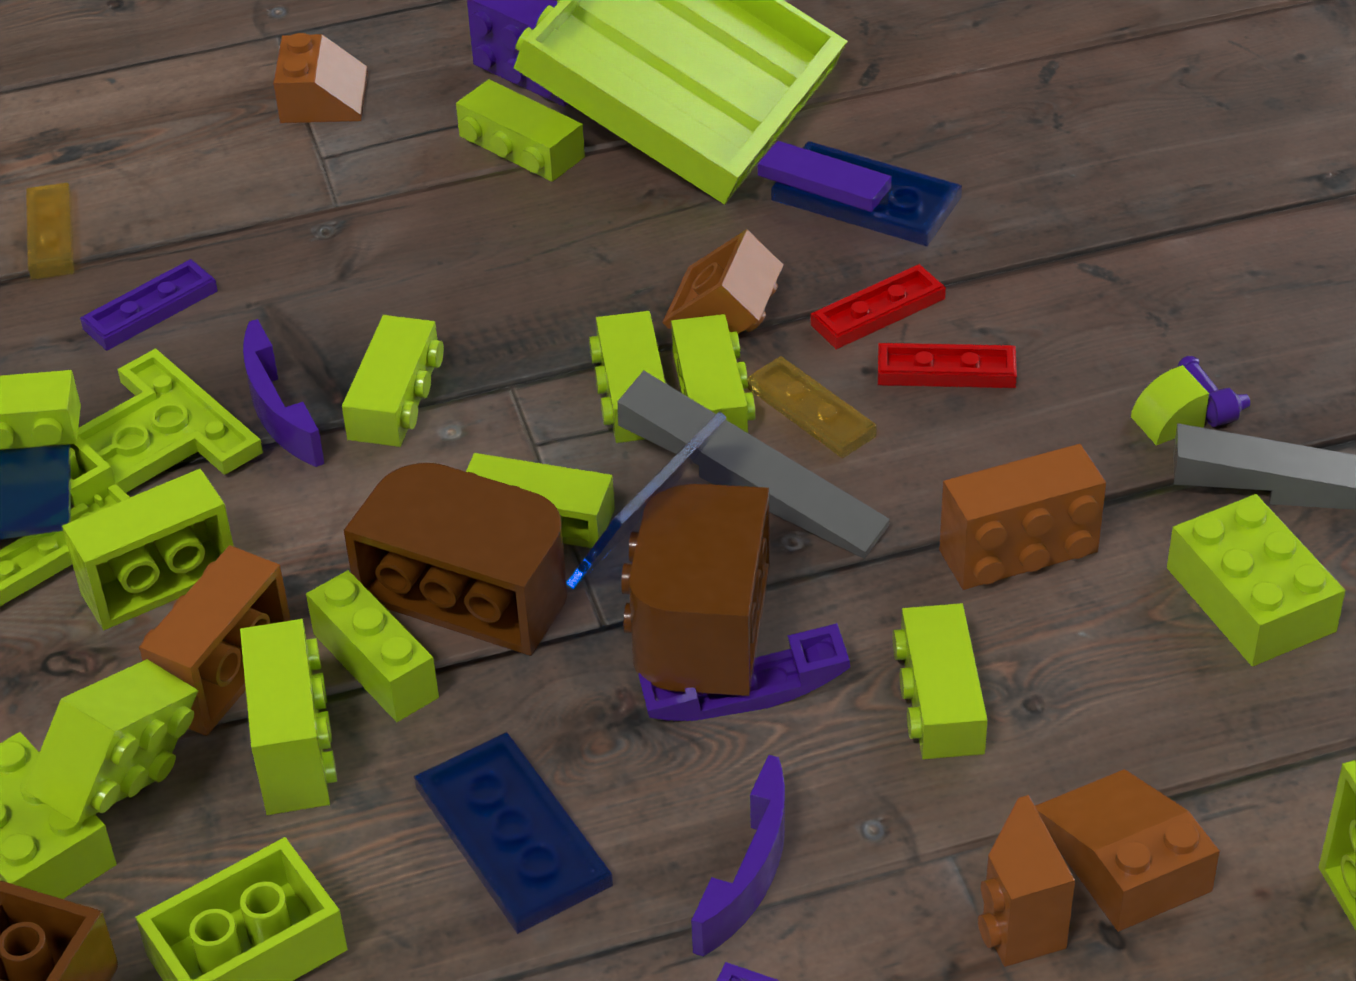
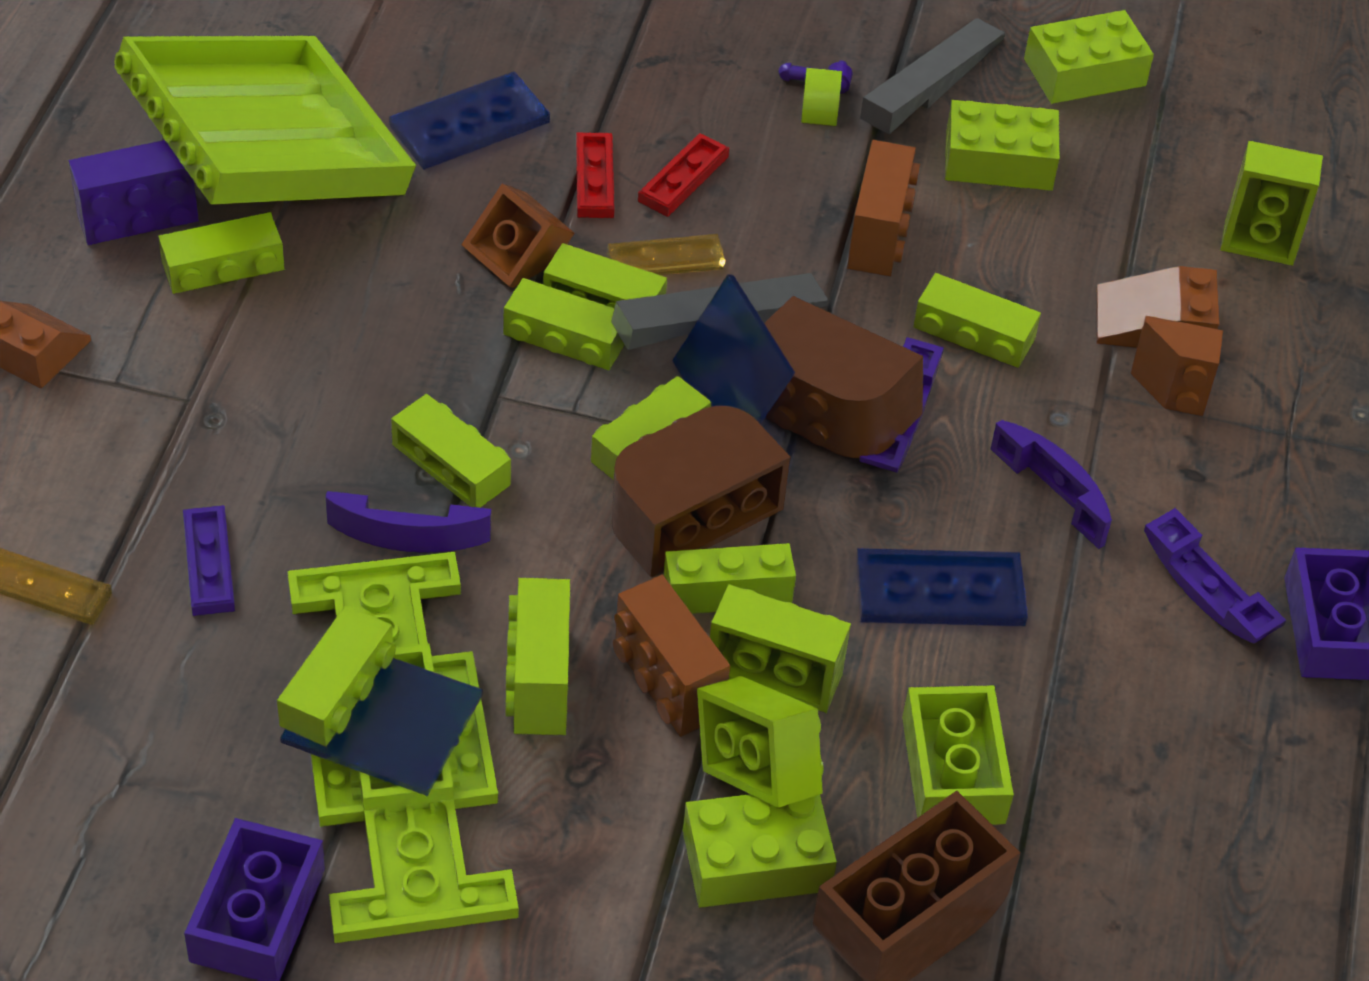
camera: 65 degrees left, 5 degrees up
(824, 176) = (448, 125): dark purple tile -> none

